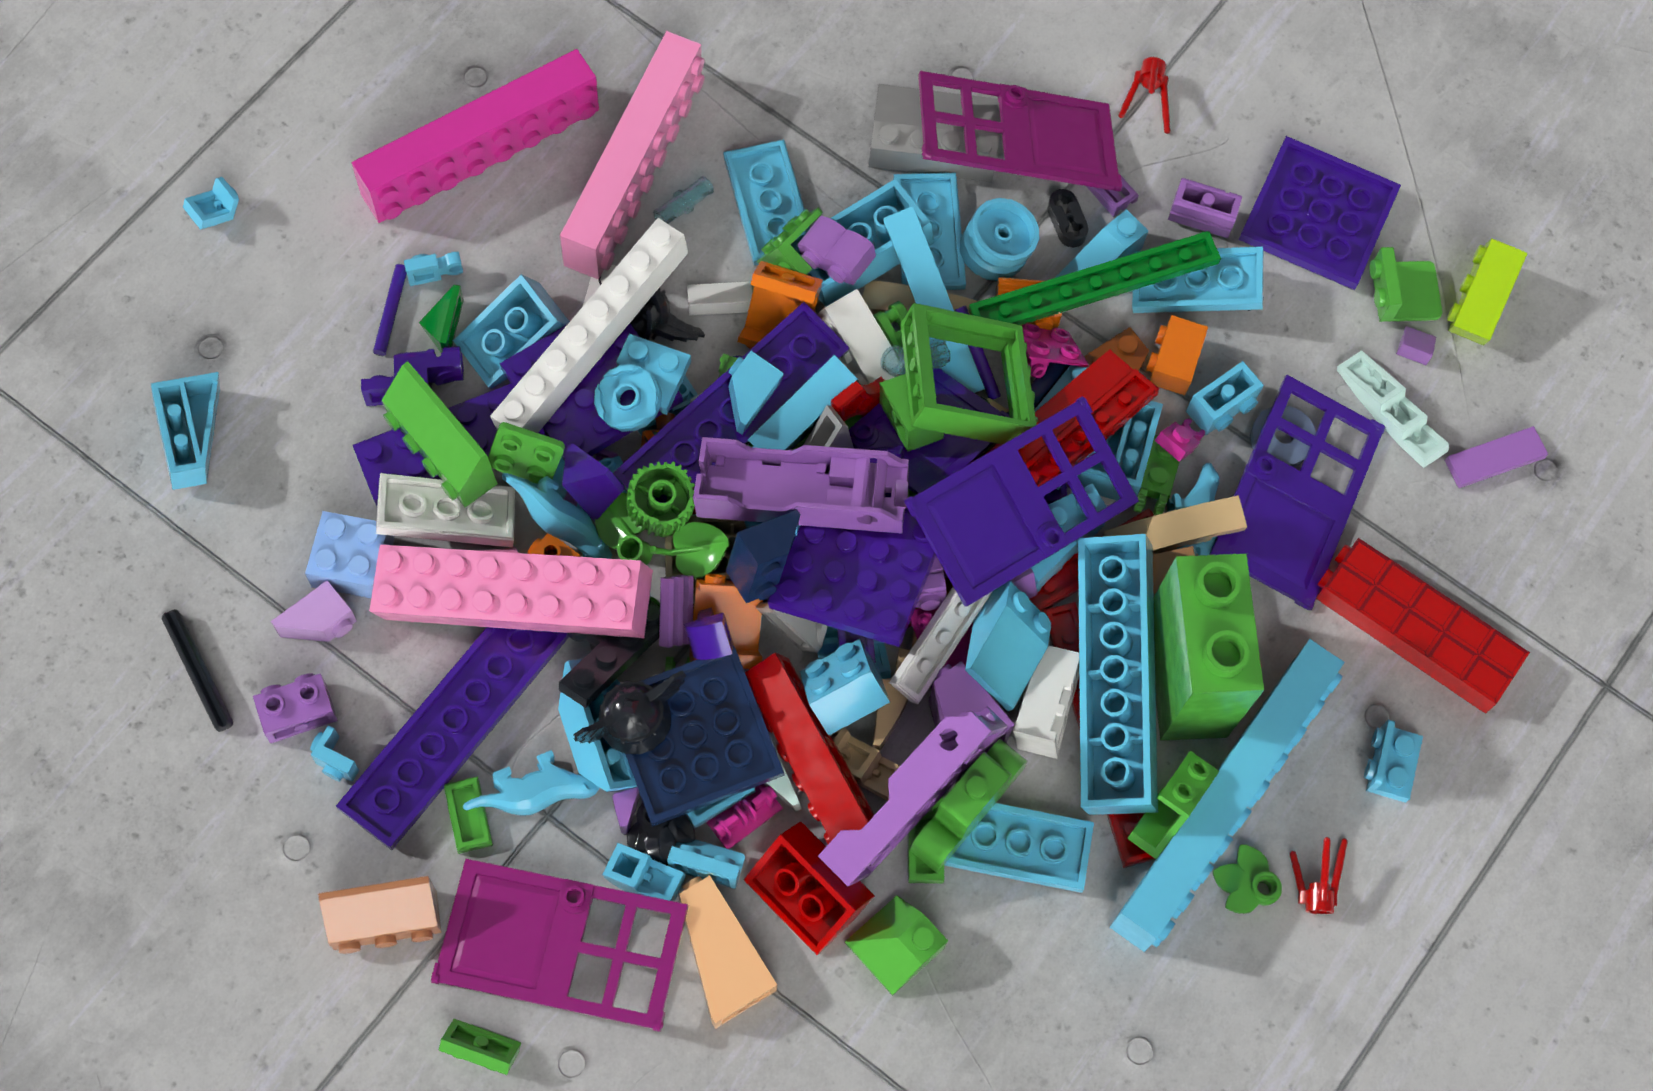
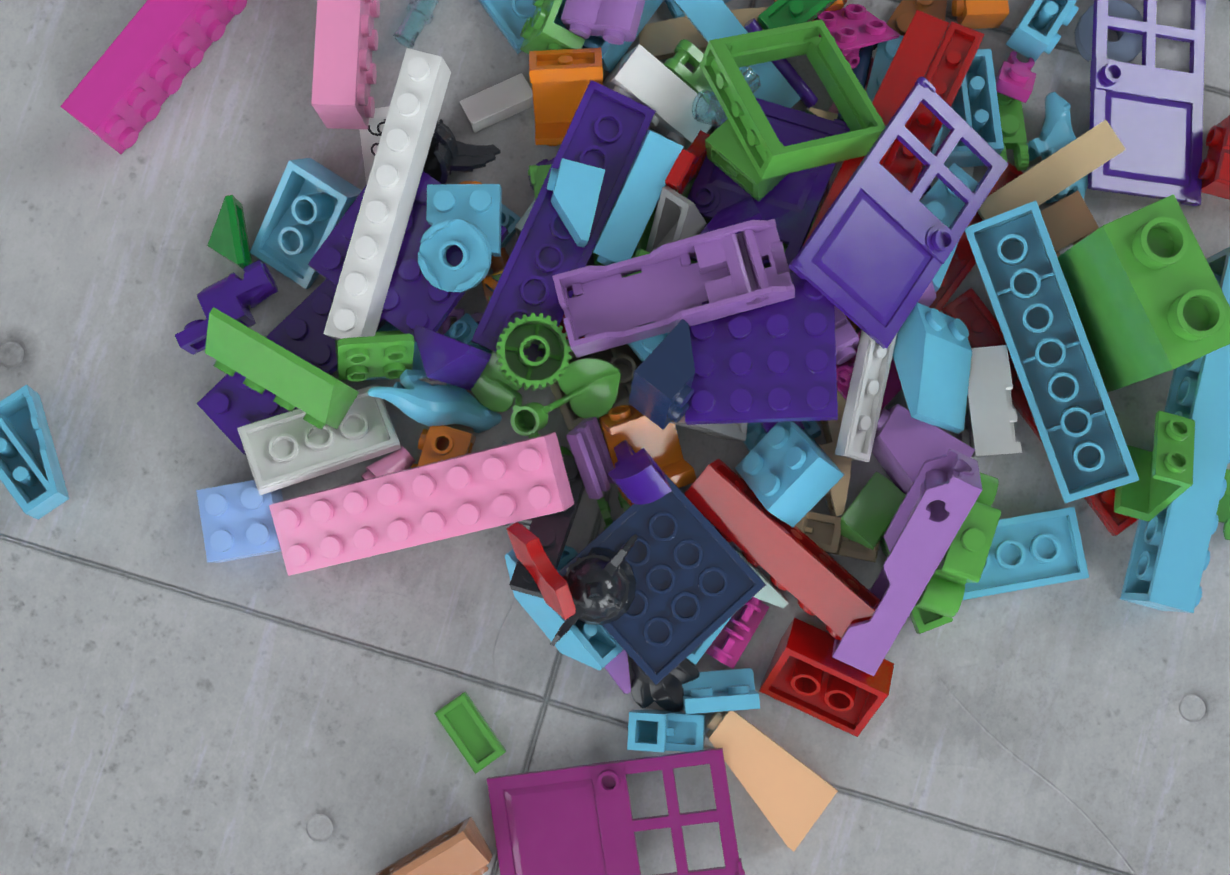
camera: 15 degrees left, 15 degrees up
(197, 670) = (145, 693): black axle -> none
(294, 707) = (257, 695): medium lavender brick -> none
(316, 616) = (239, 593): lavender slope -> none
(334, 764) = (321, 737): medium azure bracket -> none
(390, 310) = (172, 244): dark purple bar -> none
(429, 268) = (191, 186): medium azure plate -> none
(447, 730) = (413, 663): dark purple plate -> none
(535, 789) = (525, 687): medium azure animal -> none
(592, 673) = (549, 581): none -> red tile
(892, 752) = (872, 511): none -> bright green slope
(896, 943) = (931, 698): bright green slope -> none

